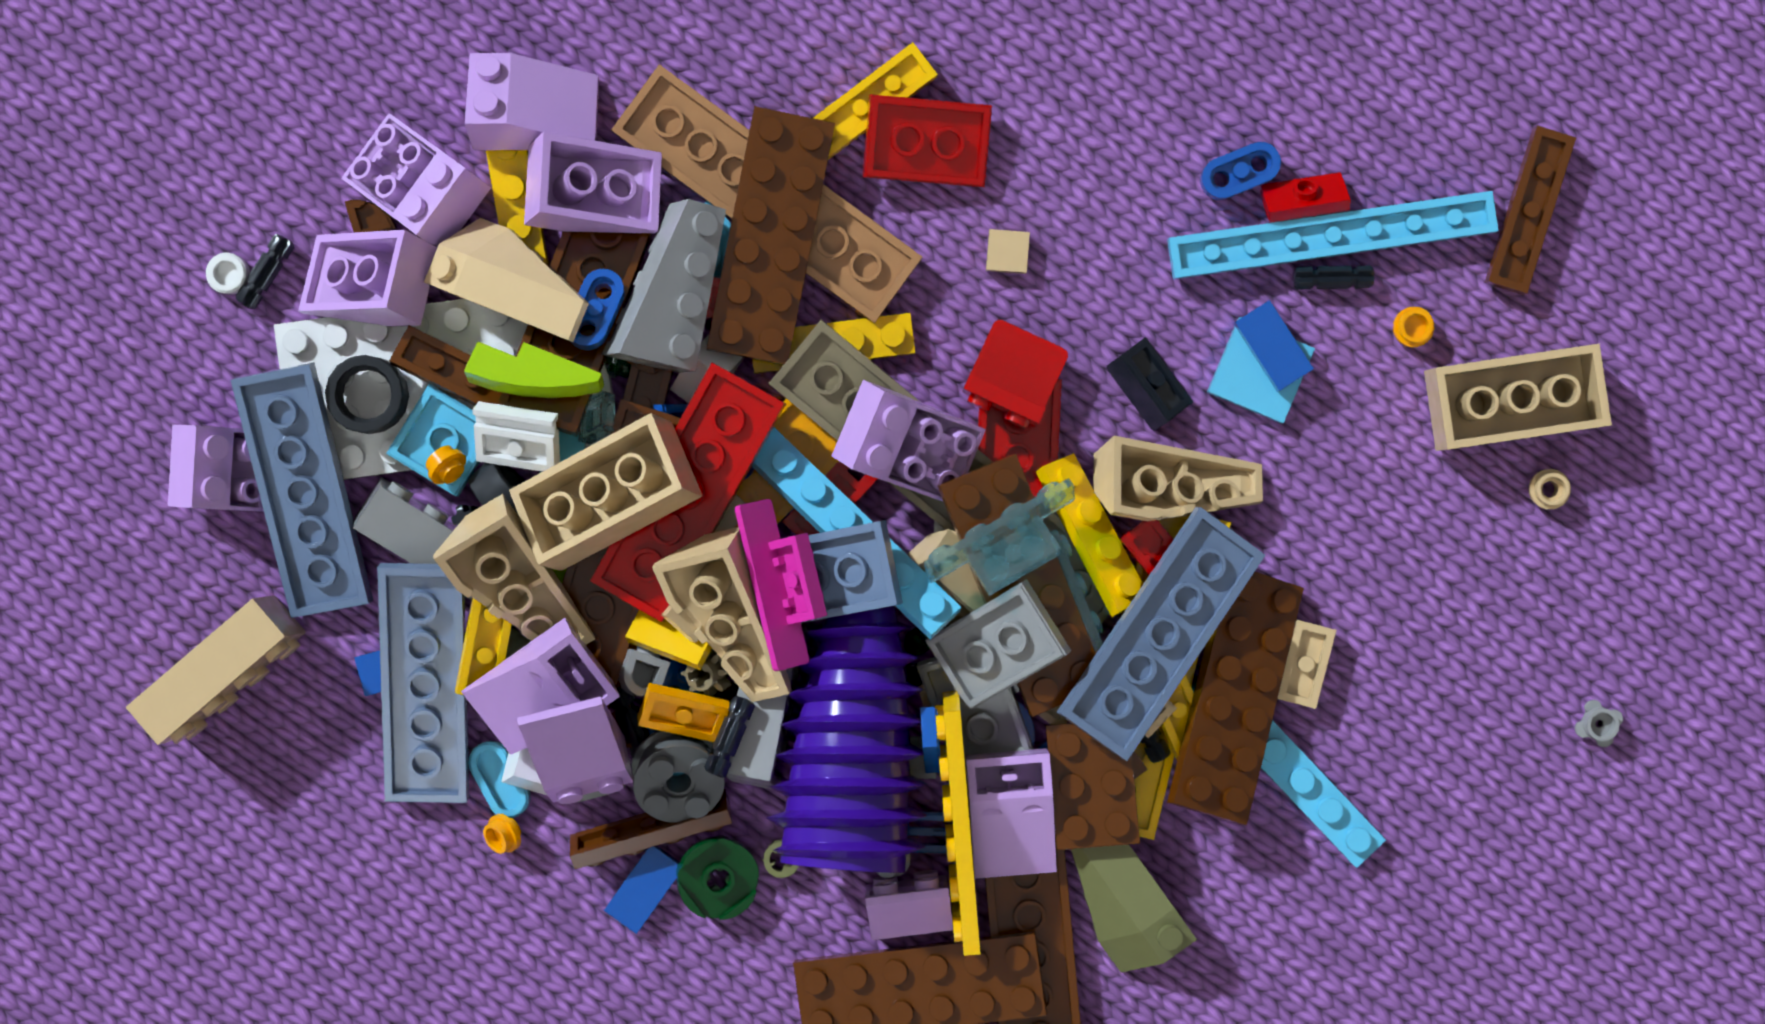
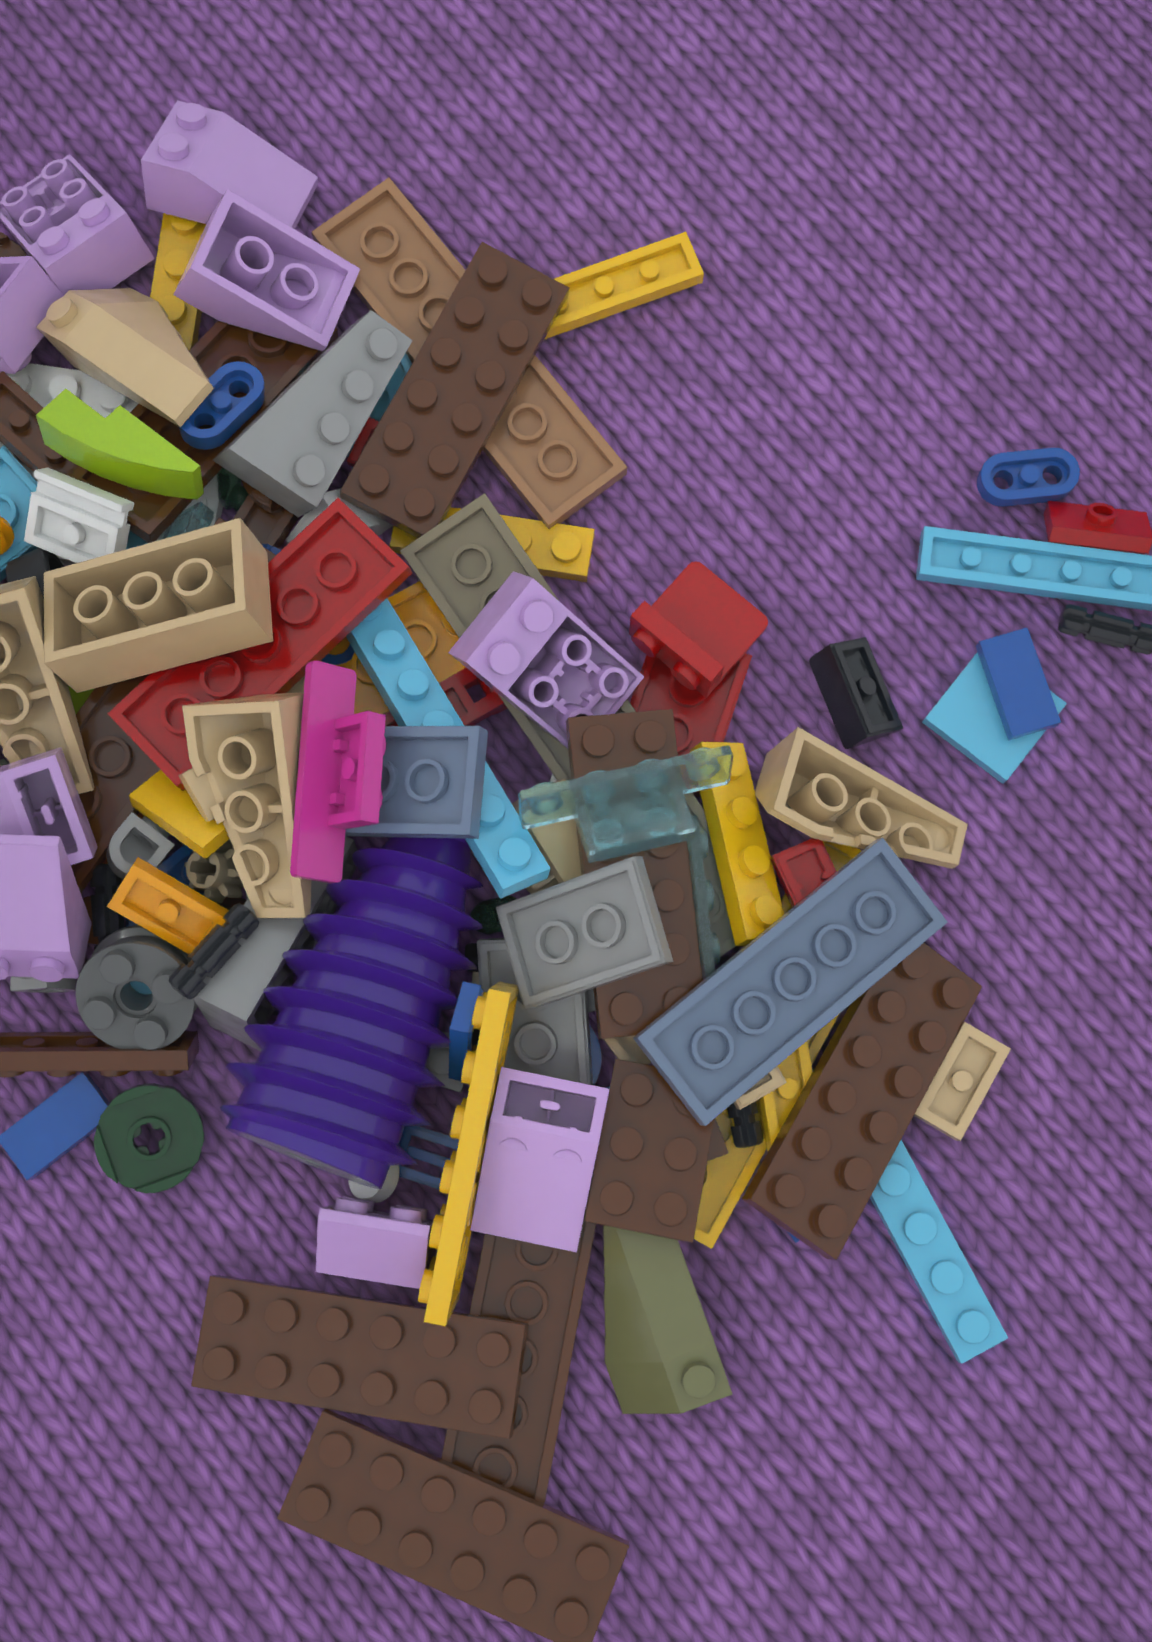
camera: 15 degrees right, 10 degrees down
(787, 869) = (238, 1155): olive bush -> none
(927, 141) = (670, 342): red tile -> none
(1007, 251) = (729, 494): tan tile -> none

